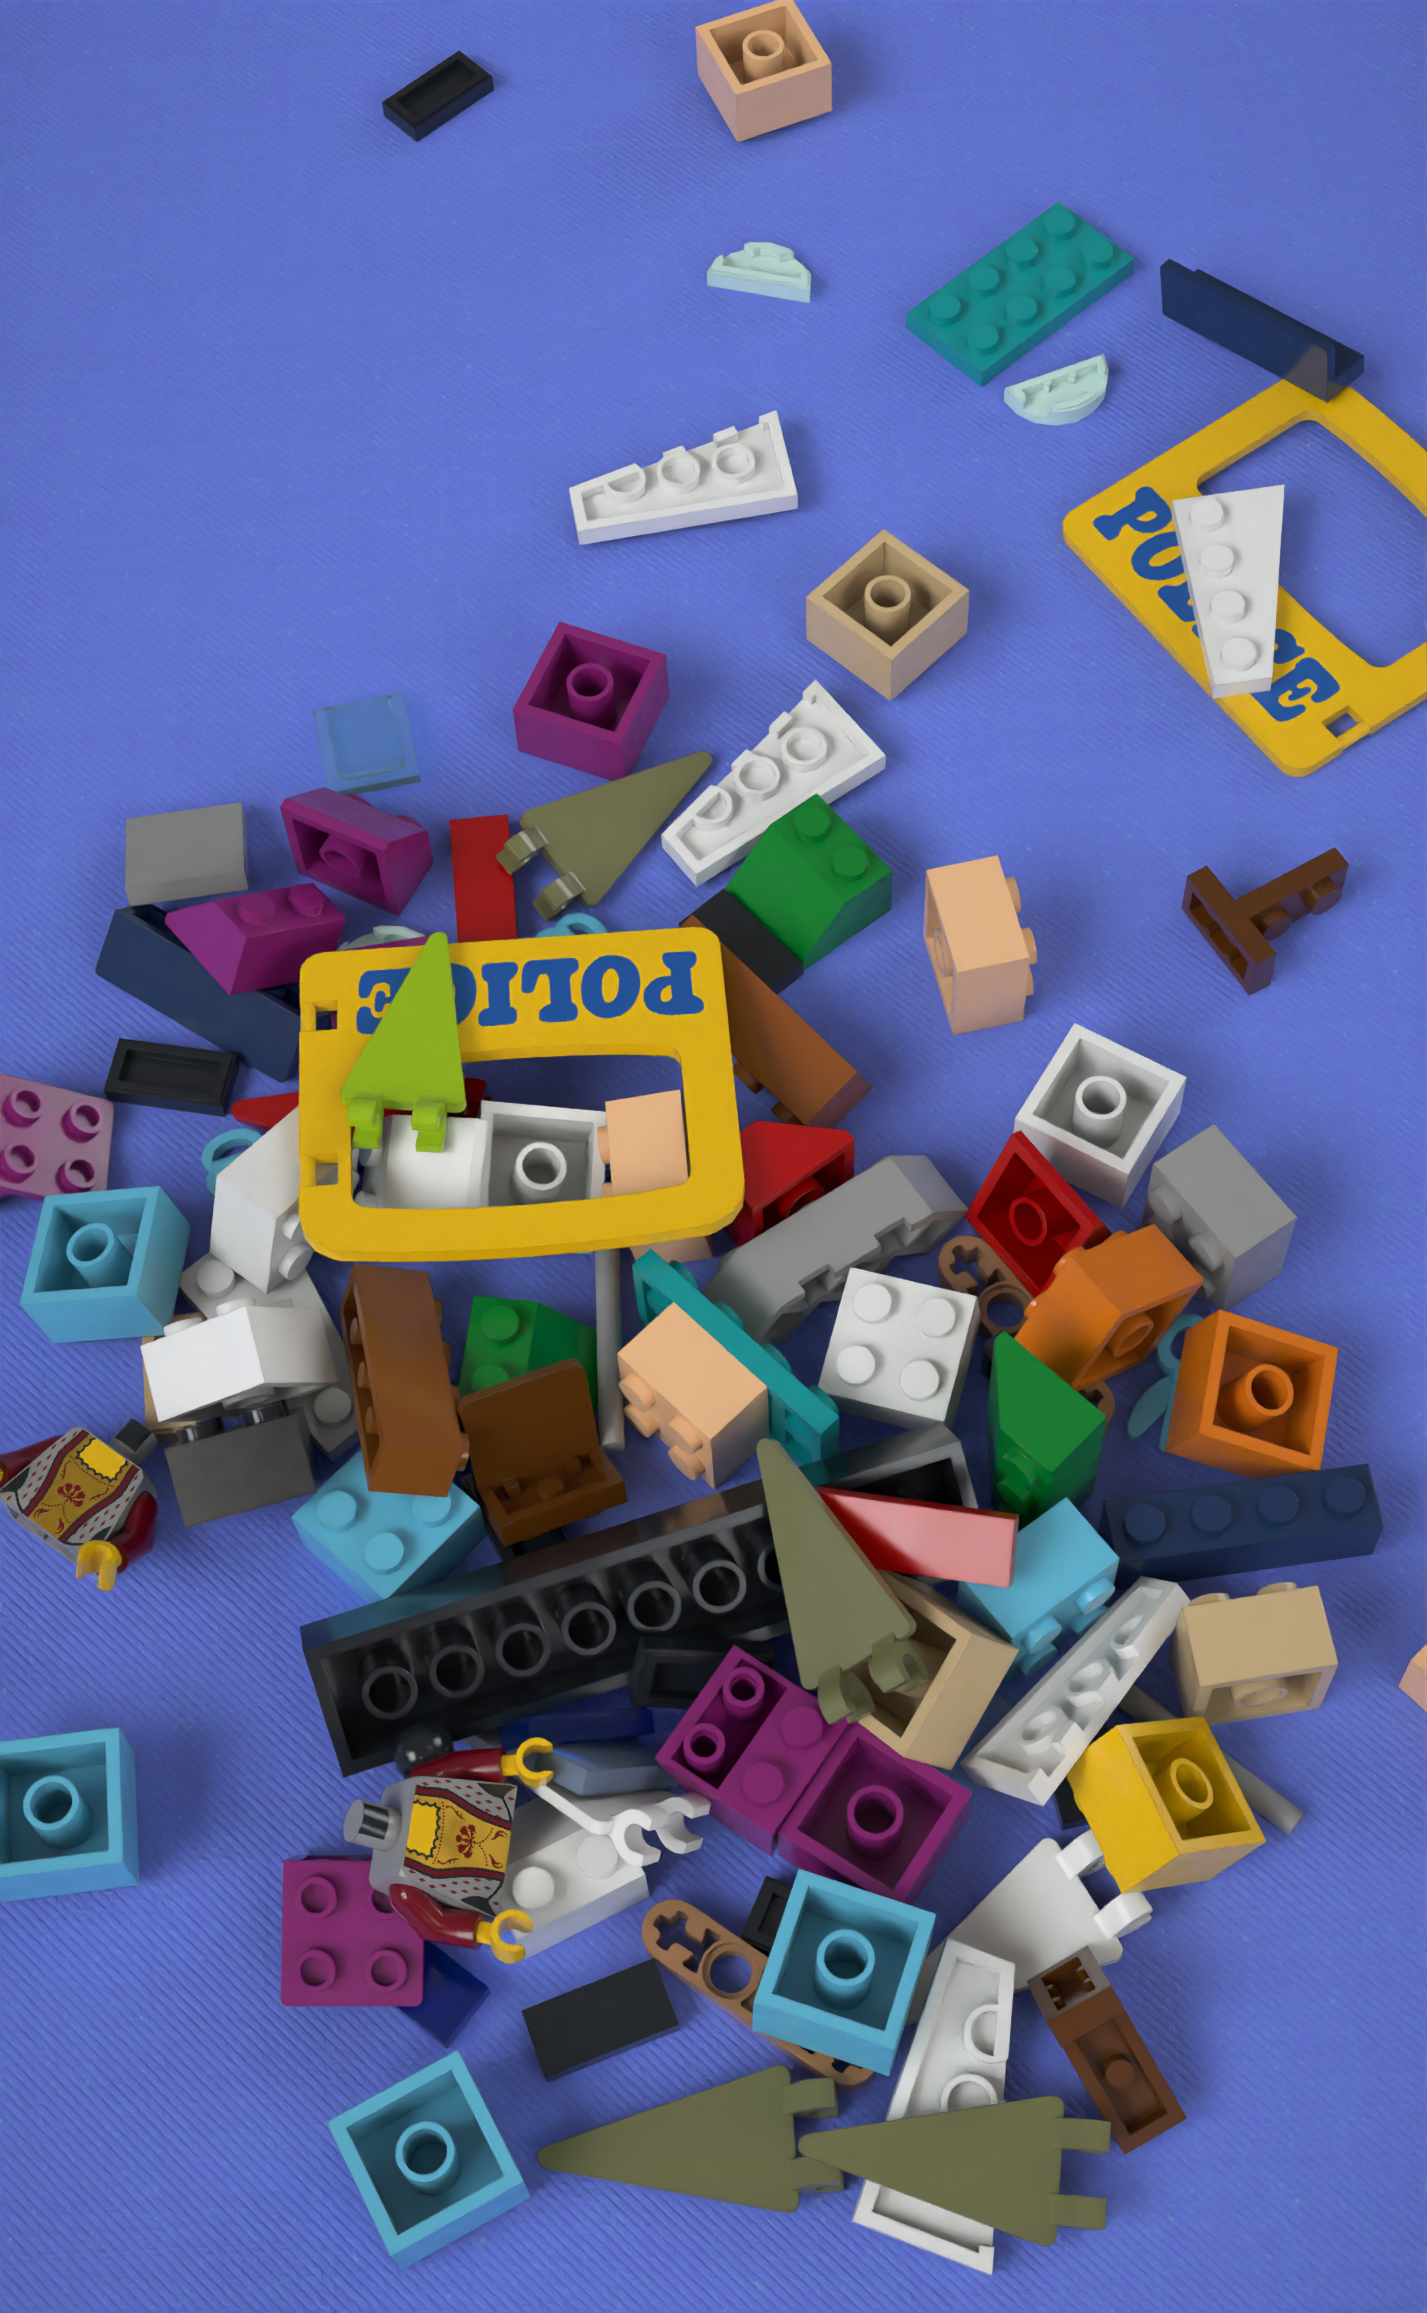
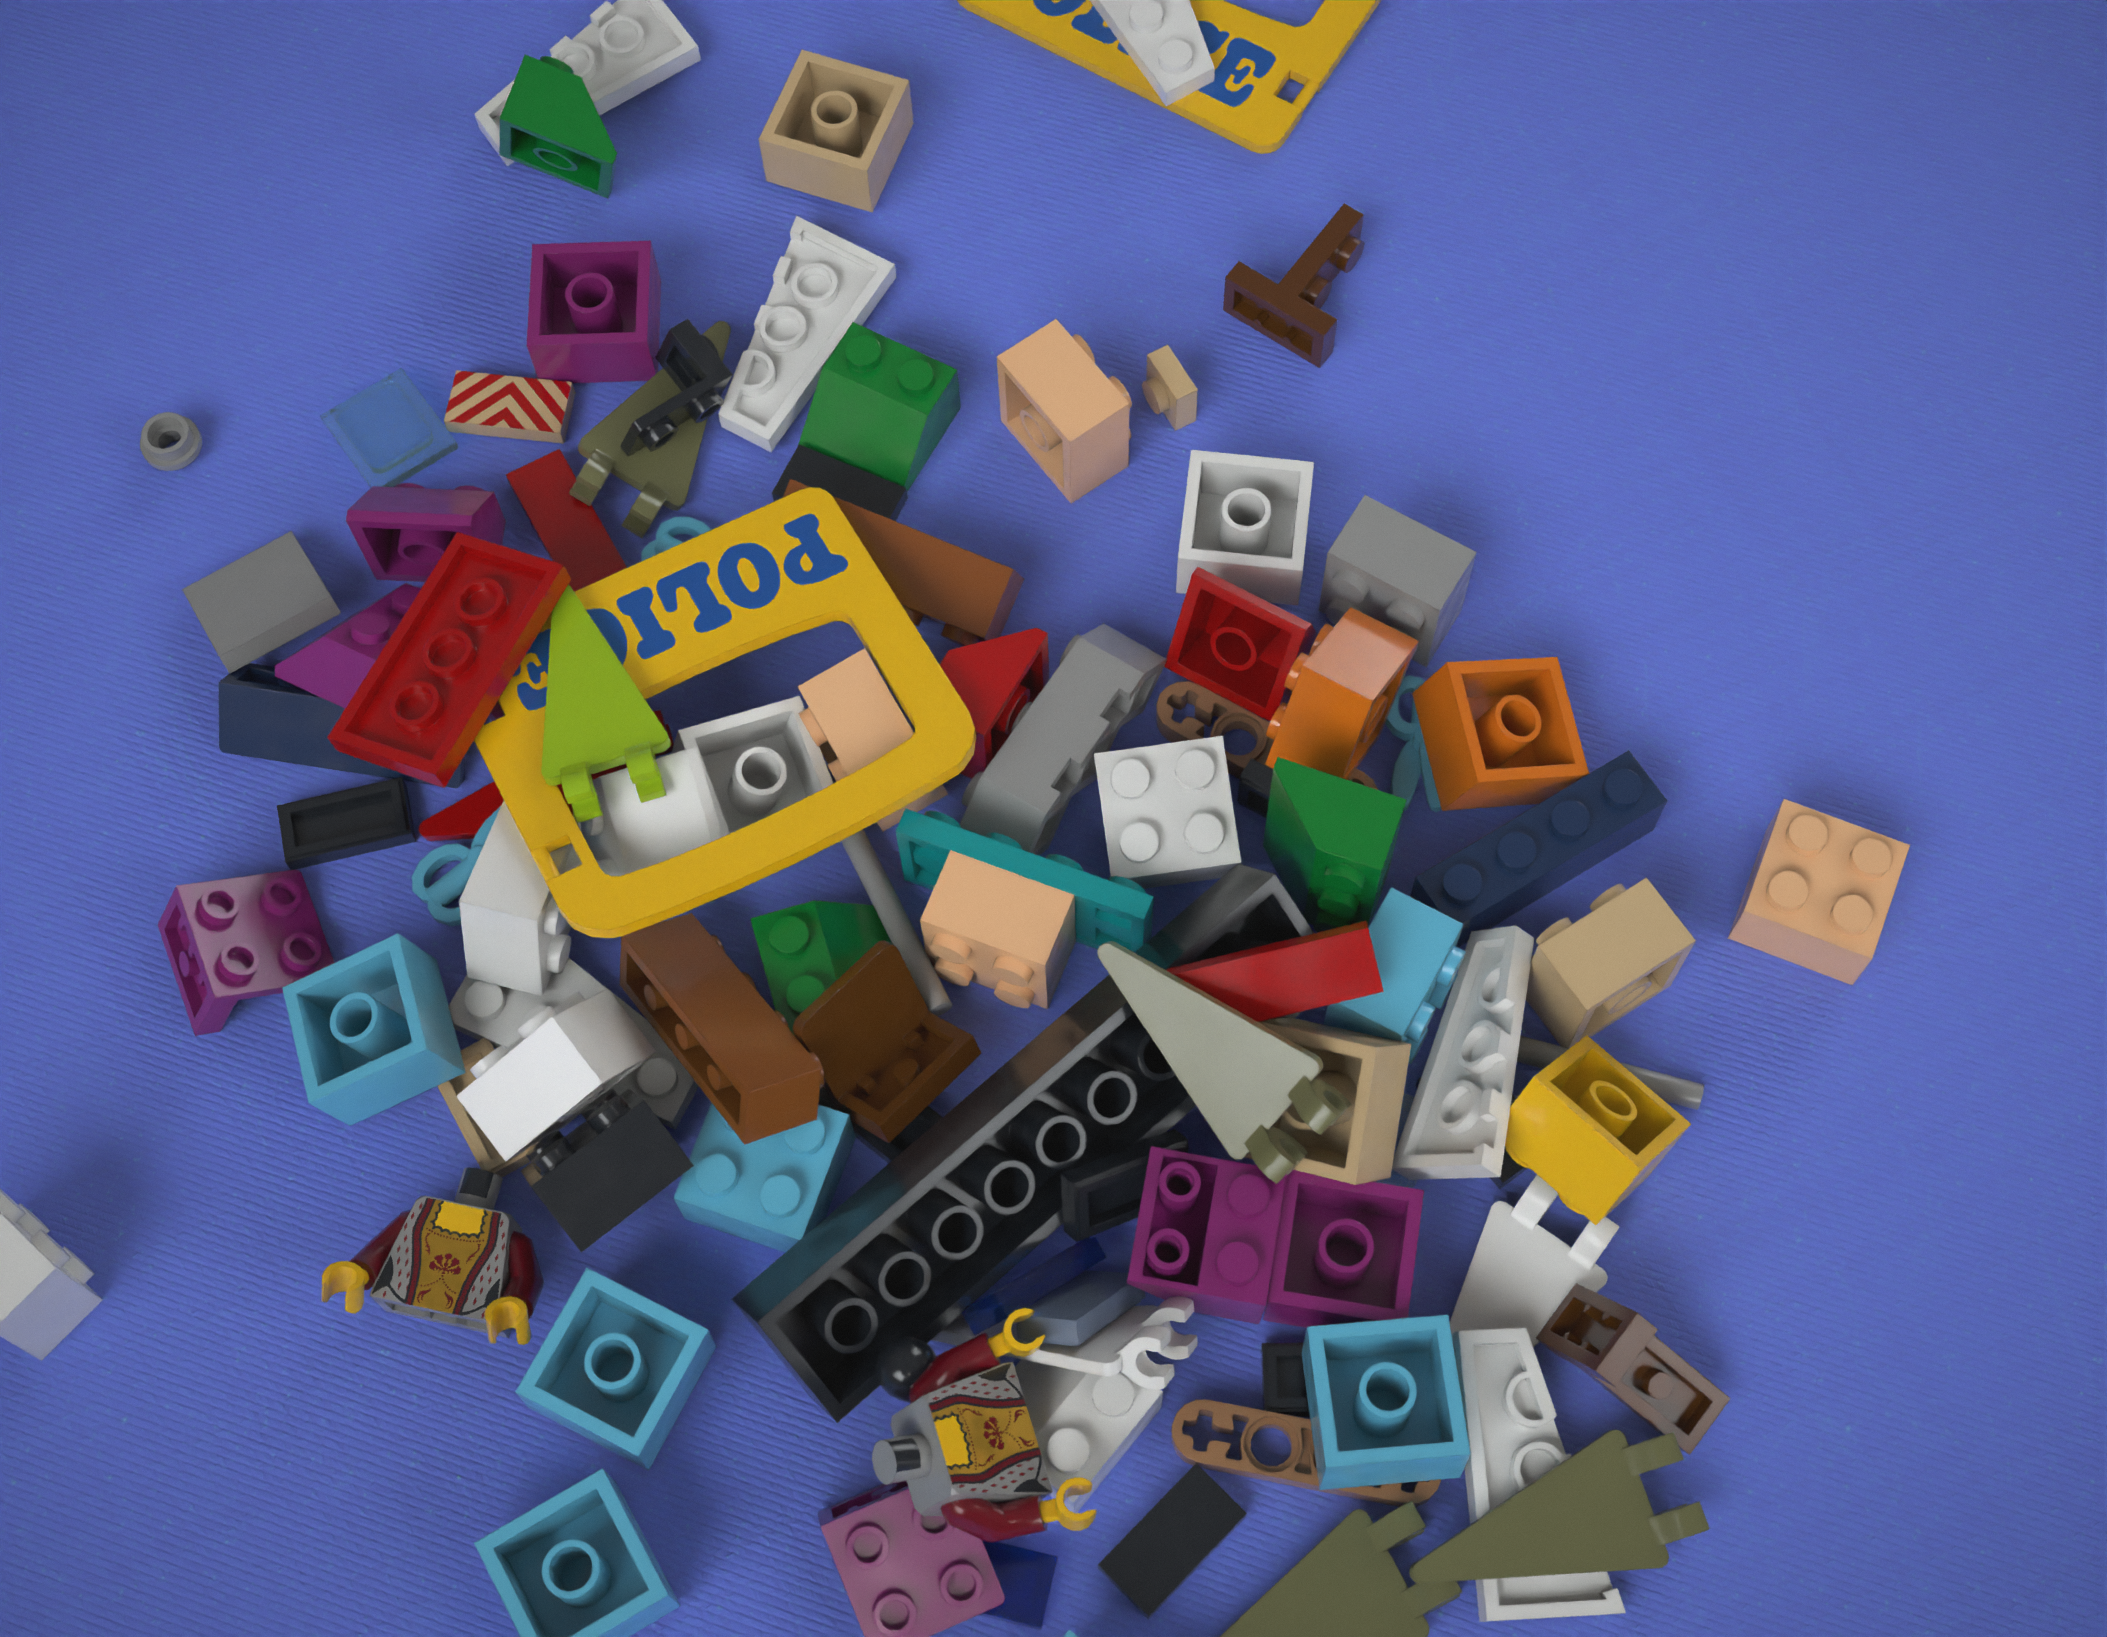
camera: 25 degrees left, 5 degrees up
(175, 674) = (163, 430): none -> light grey plate
(176, 1648) = (617, 1368): none -> medium azure brick
(310, 960) = (450, 659): none -> red plate
(482, 761) = (509, 407): none -> tile
(624, 521) = (556, 126): none -> green slope
(660, 794) = (698, 373): none -> black bracket
(1090, 961) = (1170, 388): none -> tan plate

